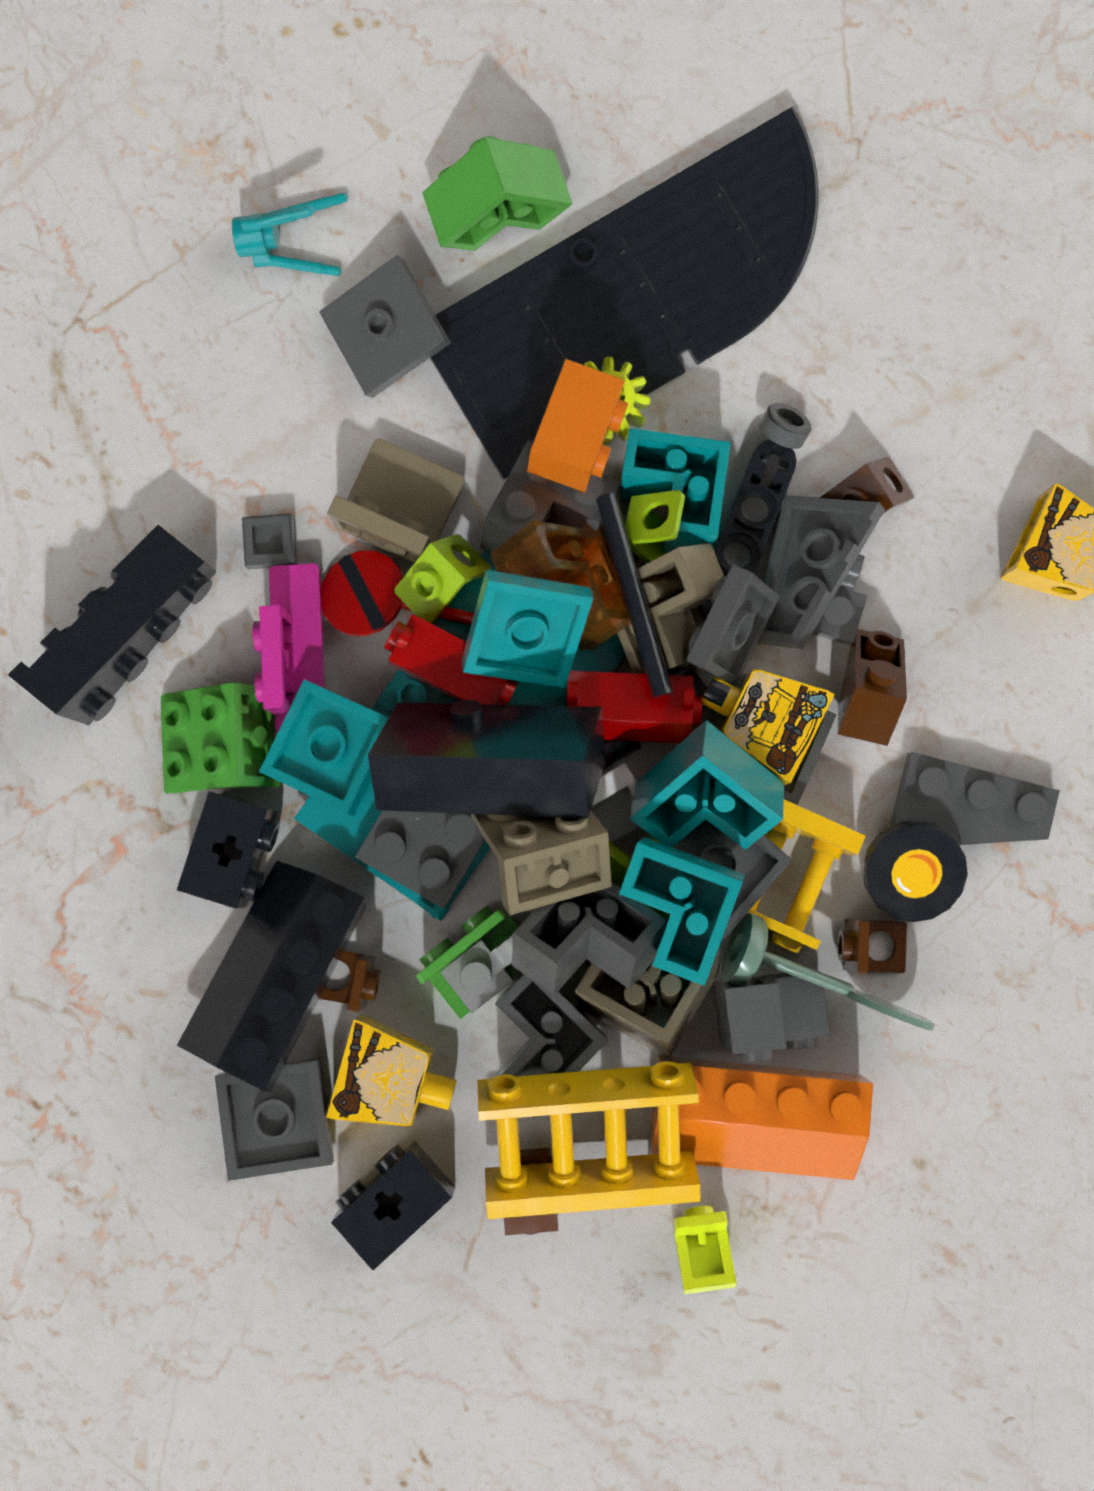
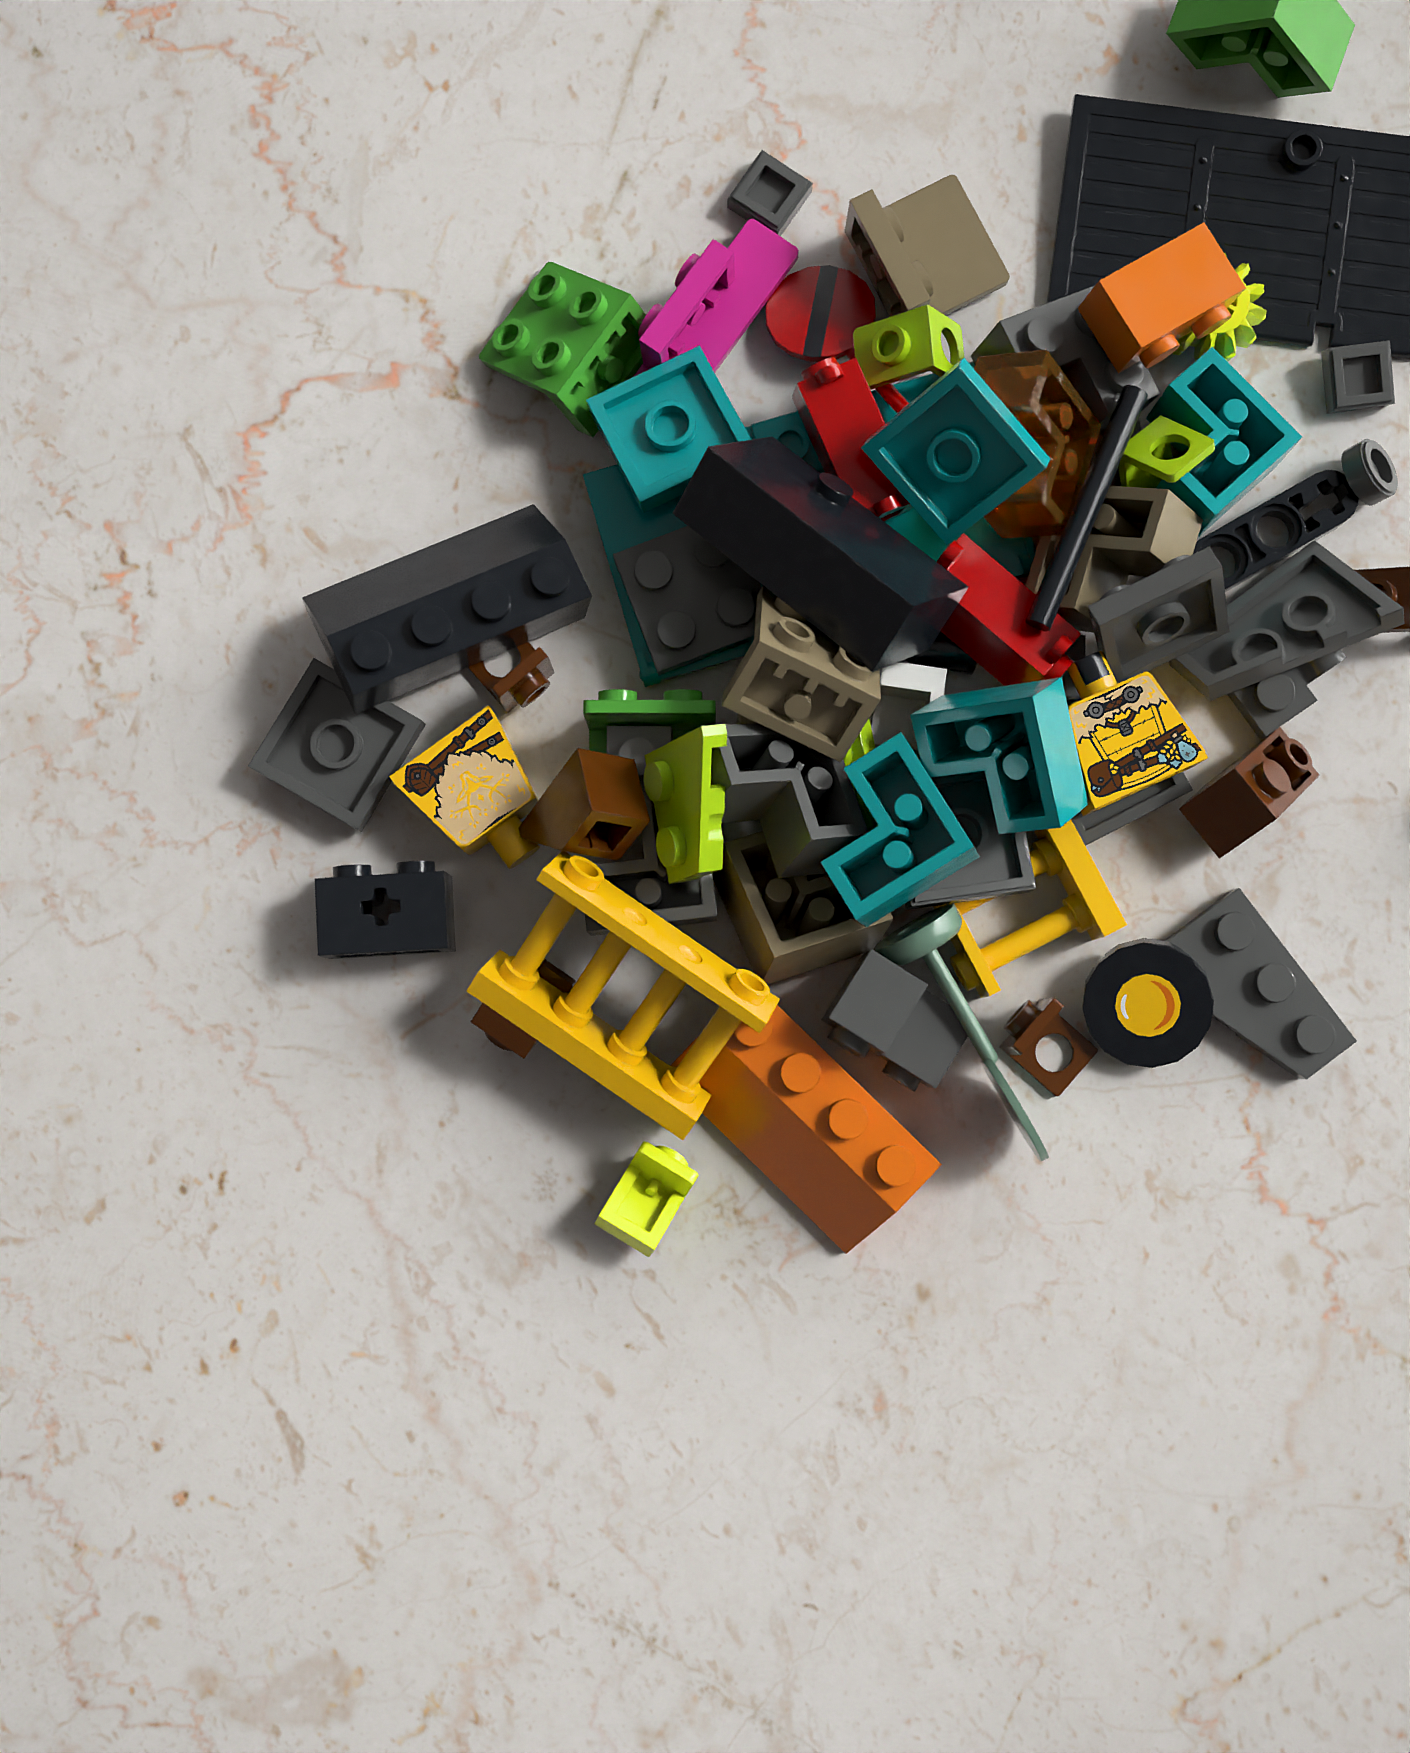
camera: 40 degrees right, 0 degrees up
(116, 629) = (560, 160): black wedge -> none
(209, 871) = (515, 429): black brick -> none
(384, 327) = (1048, 71): dark grey plate -> none
(473, 1039) = (590, 807): none -> reddish brown slope
(538, 995) = (687, 804): none -> lime wing
(730, 370) = (1358, 377): none -> dark grey tile

